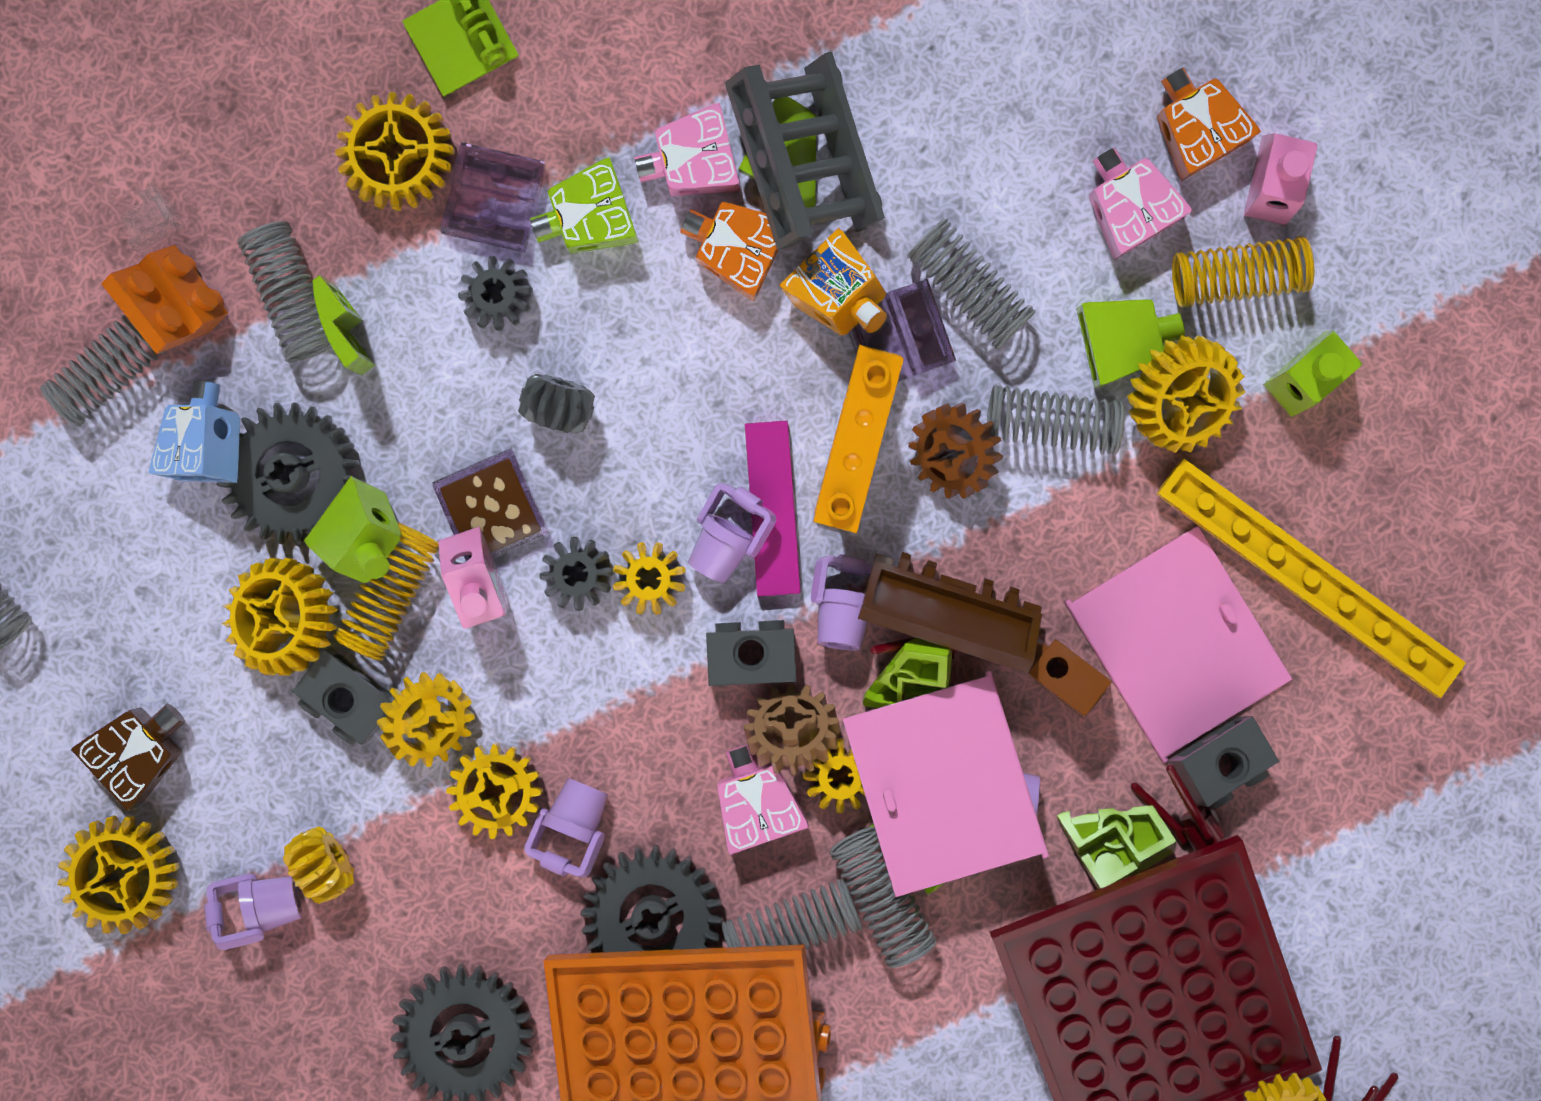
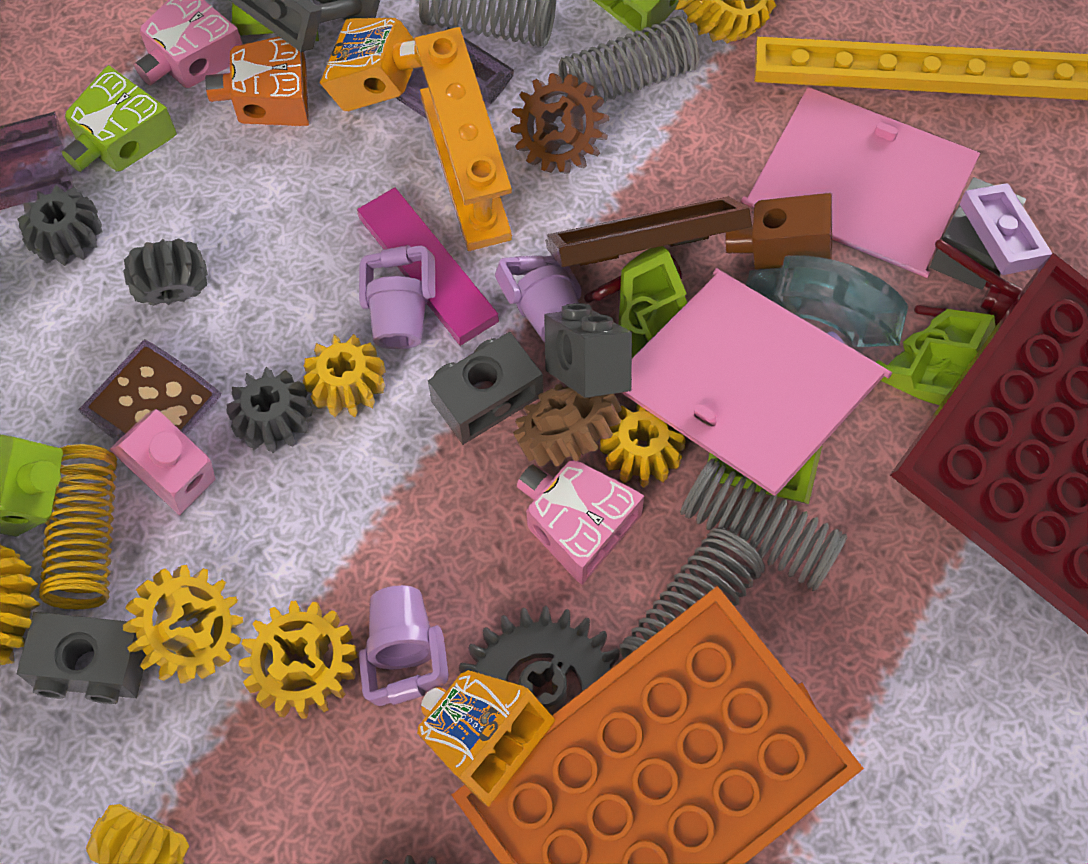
camera: 30 degrees left, 25 degrees down
(582, 937) = (483, 730): none -> light orange torso
(835, 695) = (588, 351): none -> dark grey brick
(1058, 745) = (836, 295): none -> clear light blue arch
(1228, 790) = (1005, 228): none -> lavender plate

